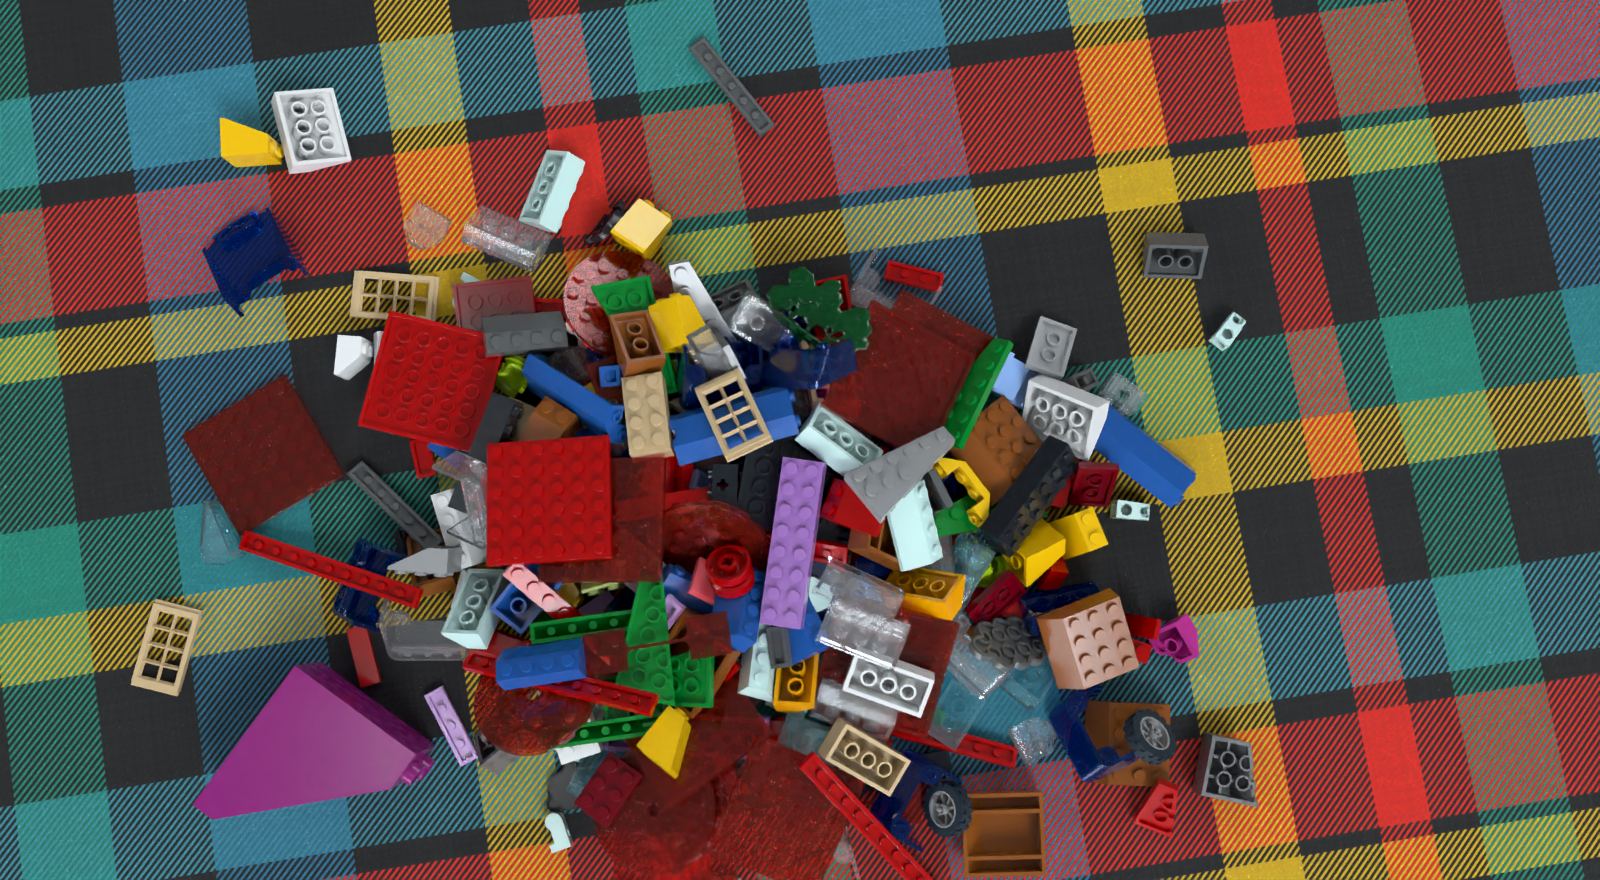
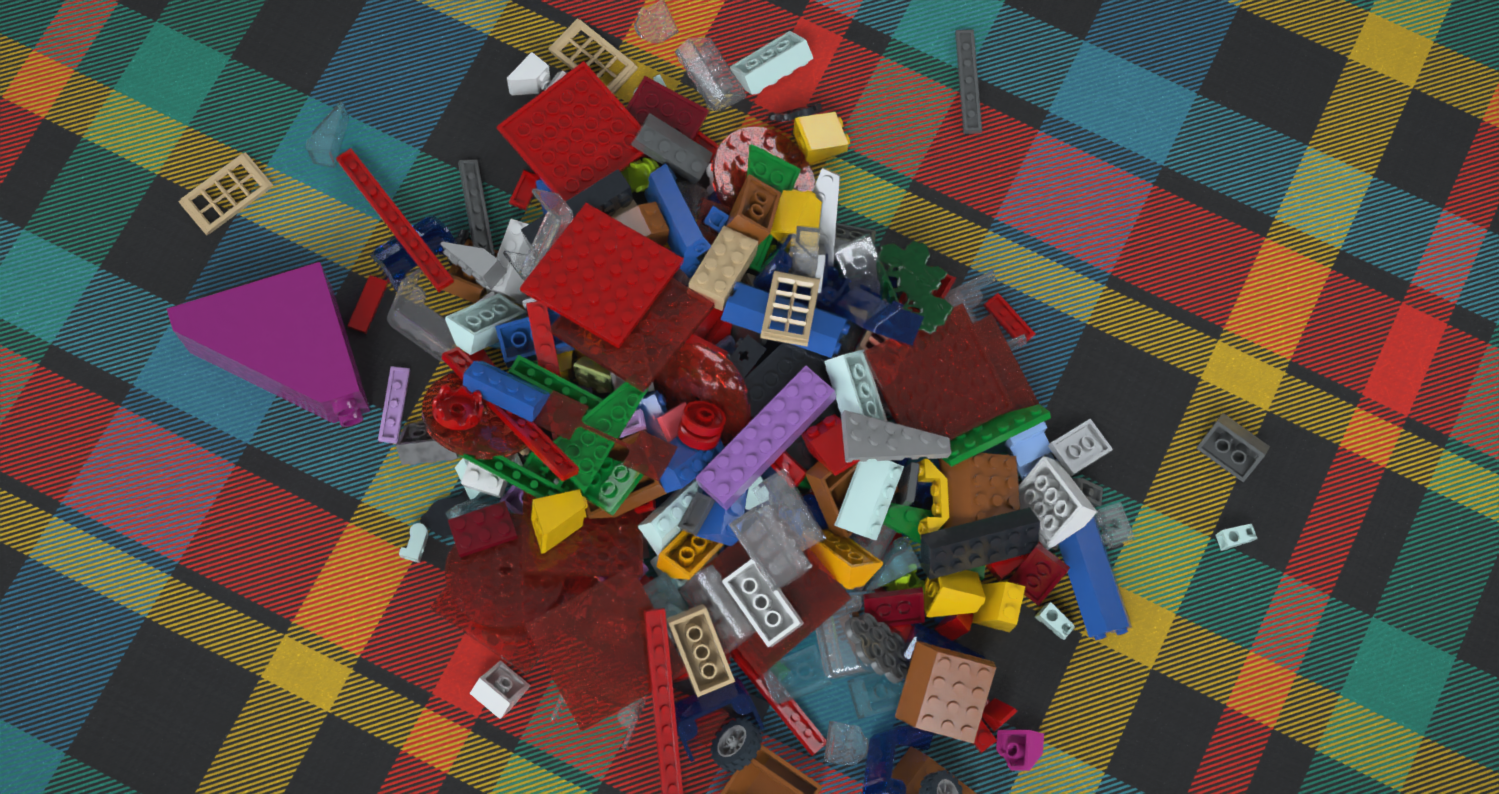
camera: 30 degrees right, 10 degrees down
(263, 455) = (406, 104): clear red plate -> none
(507, 702) = (461, 399): none -> red plate

